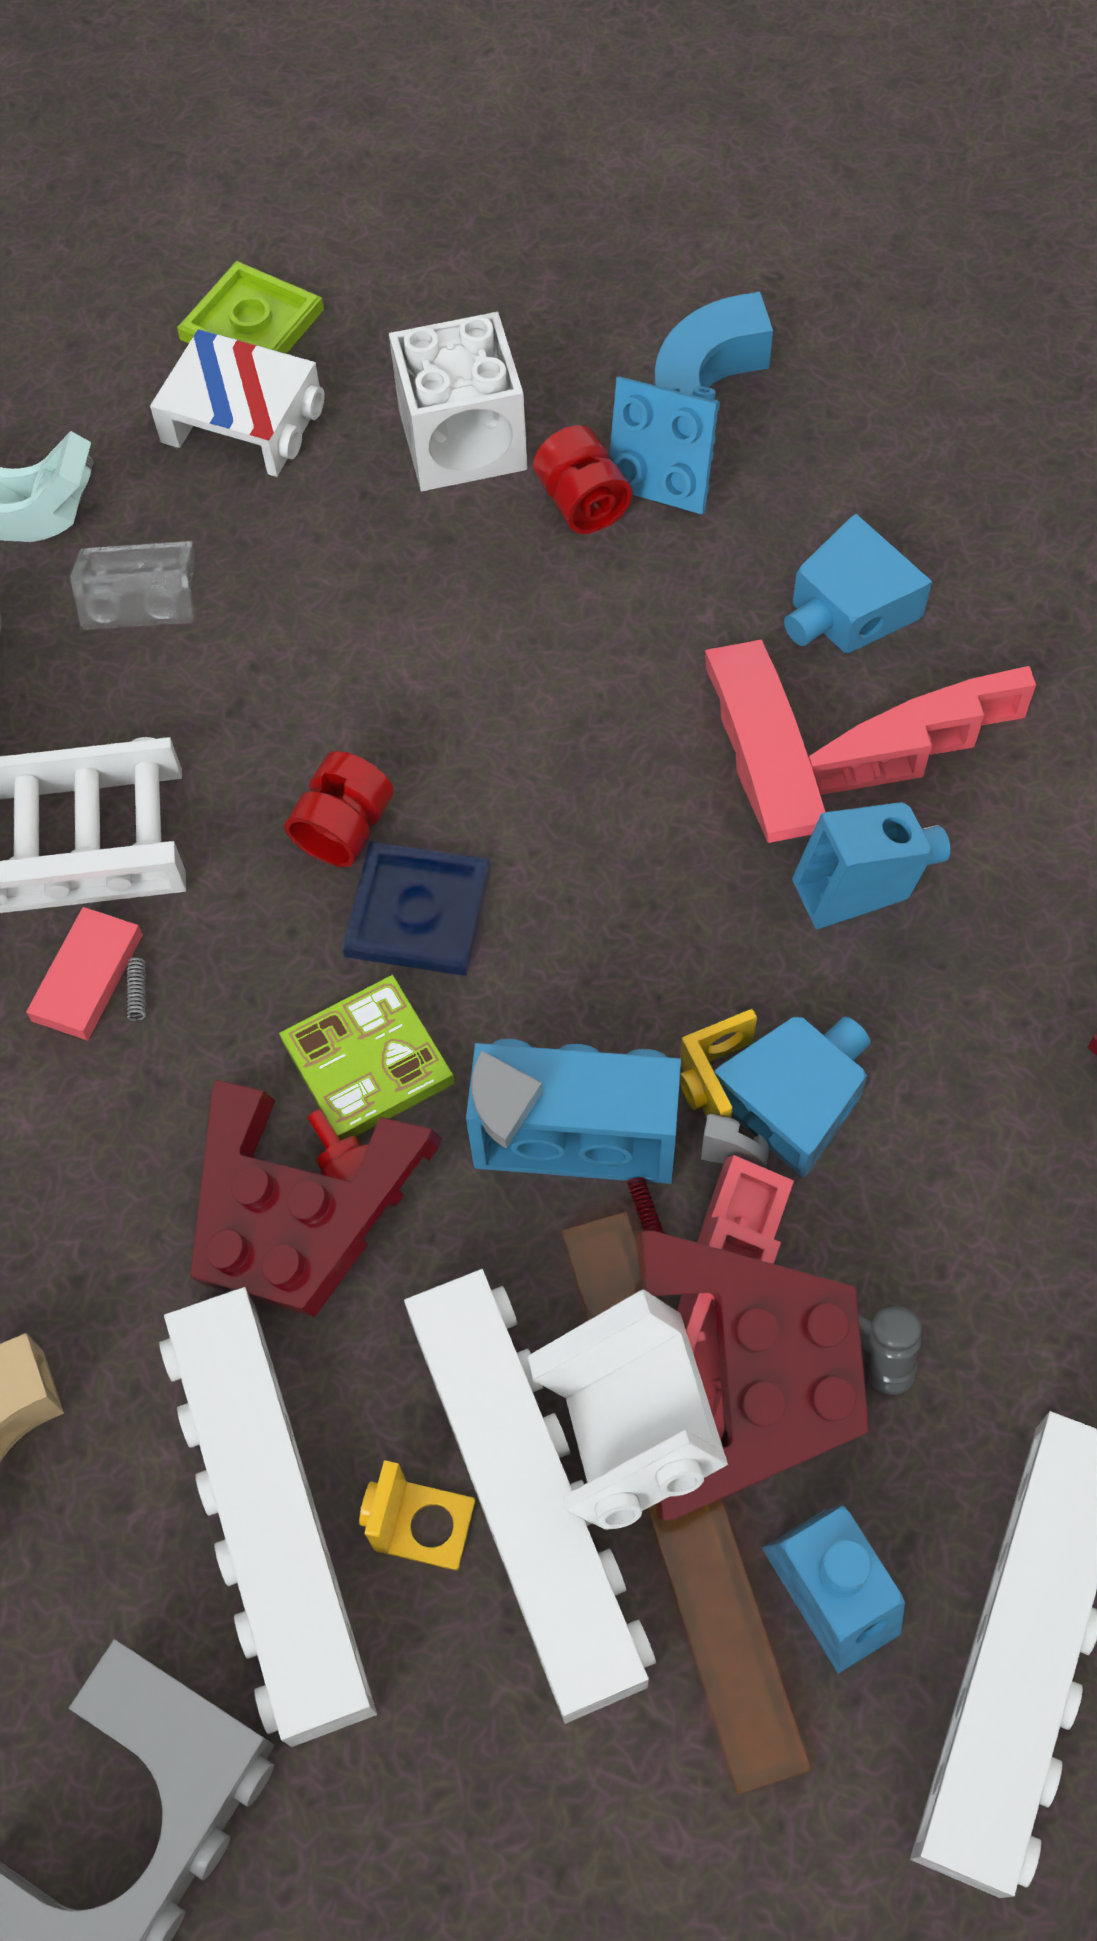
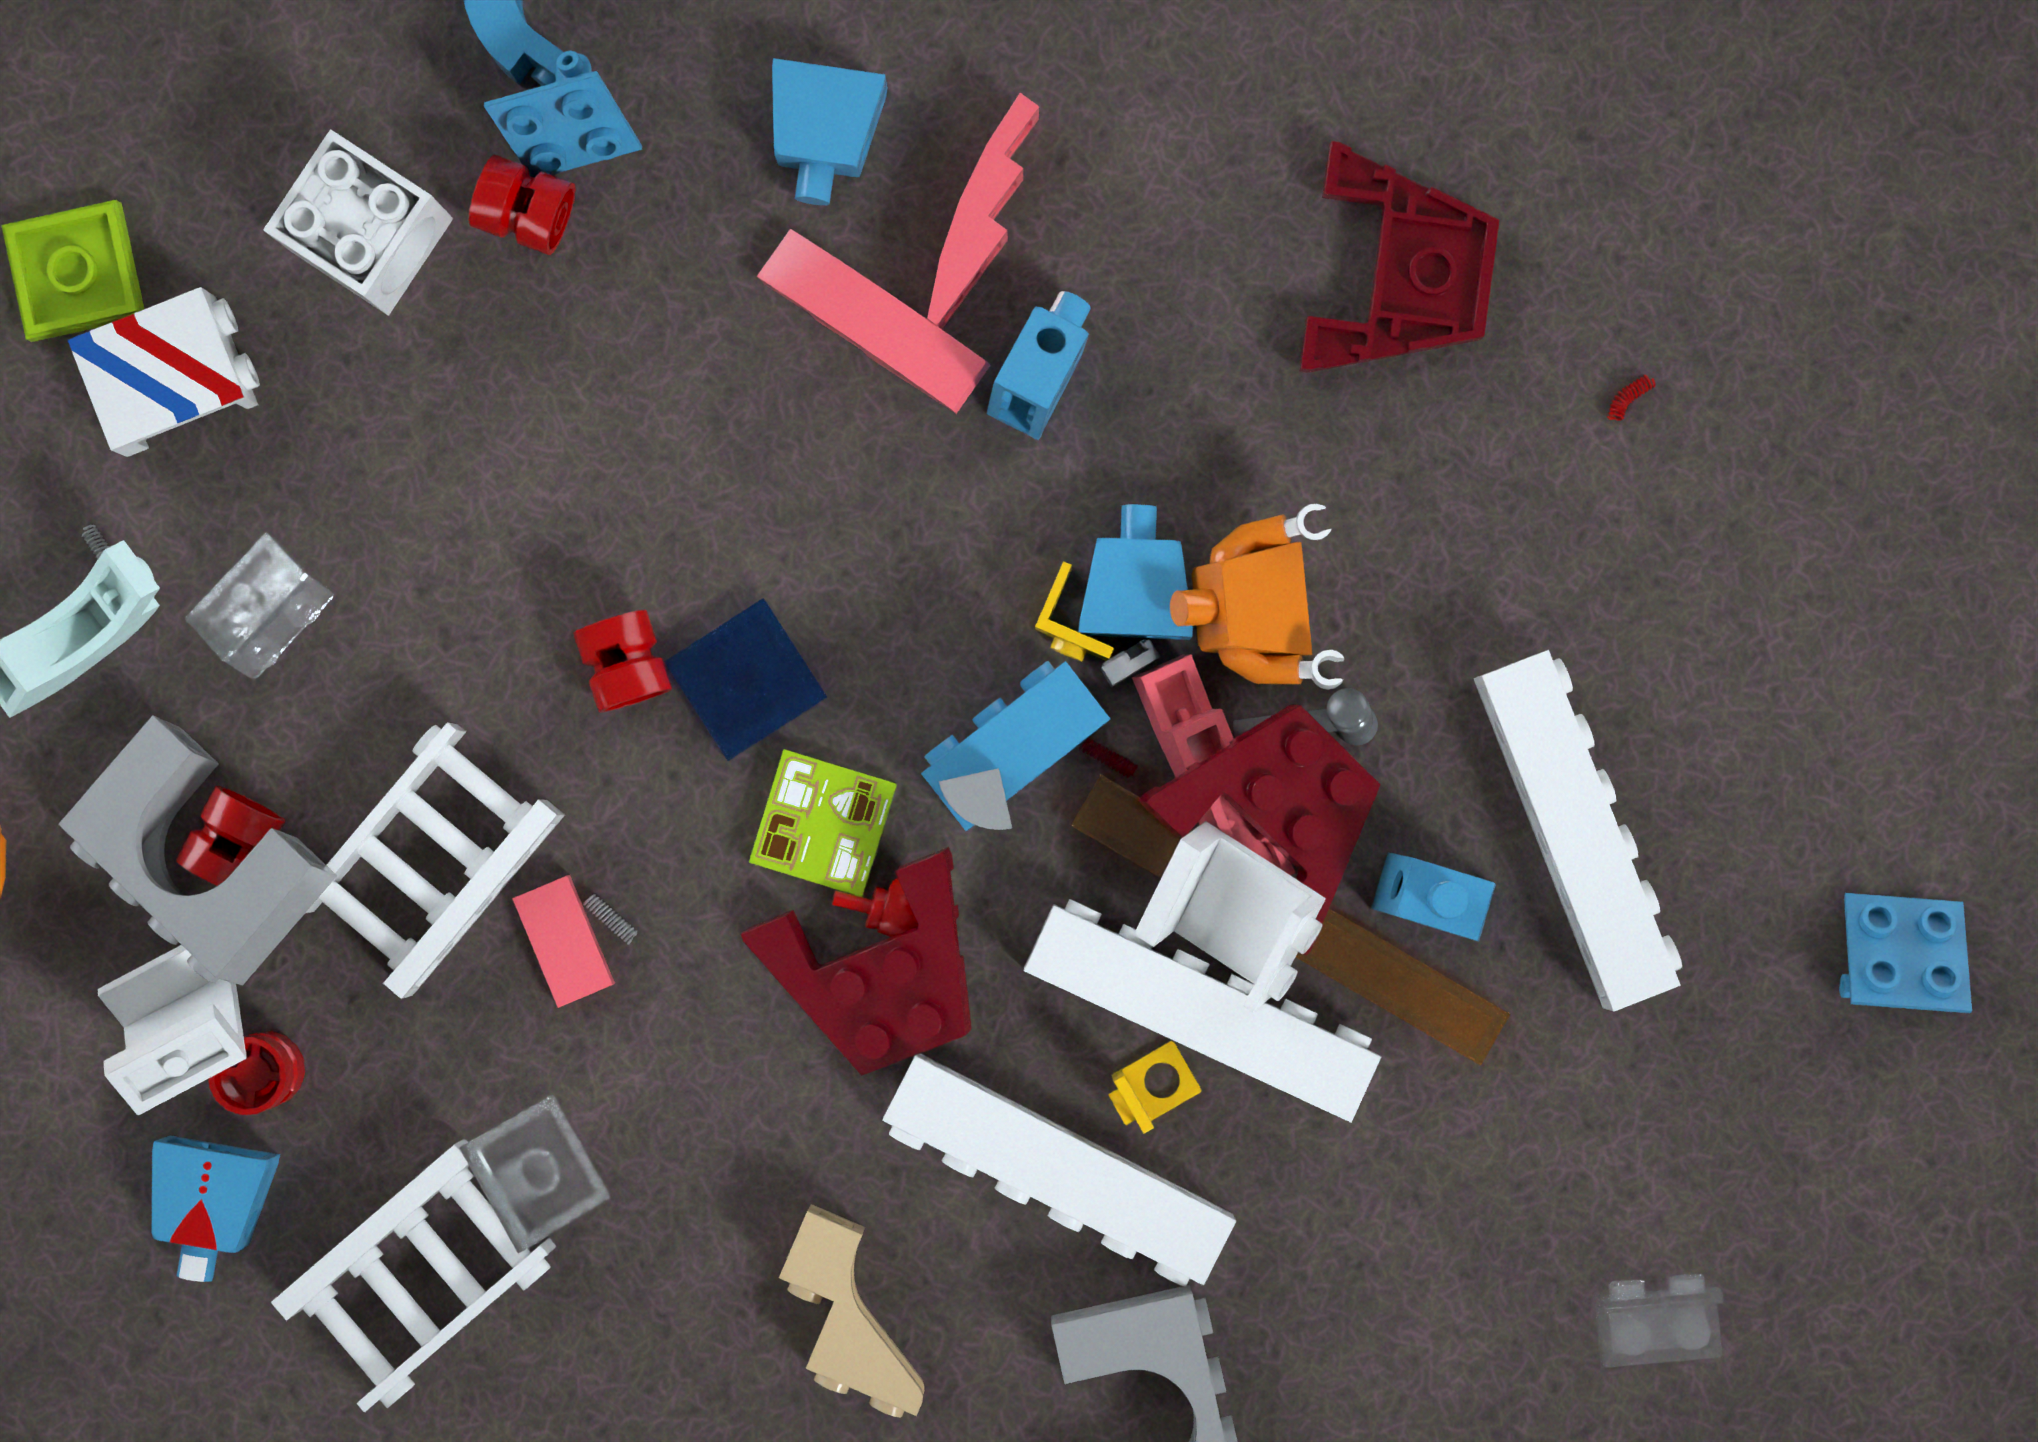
camera: 45 degrees left, 25 degrees up
(890, 1177) = (1255, 603): none -> orange torso

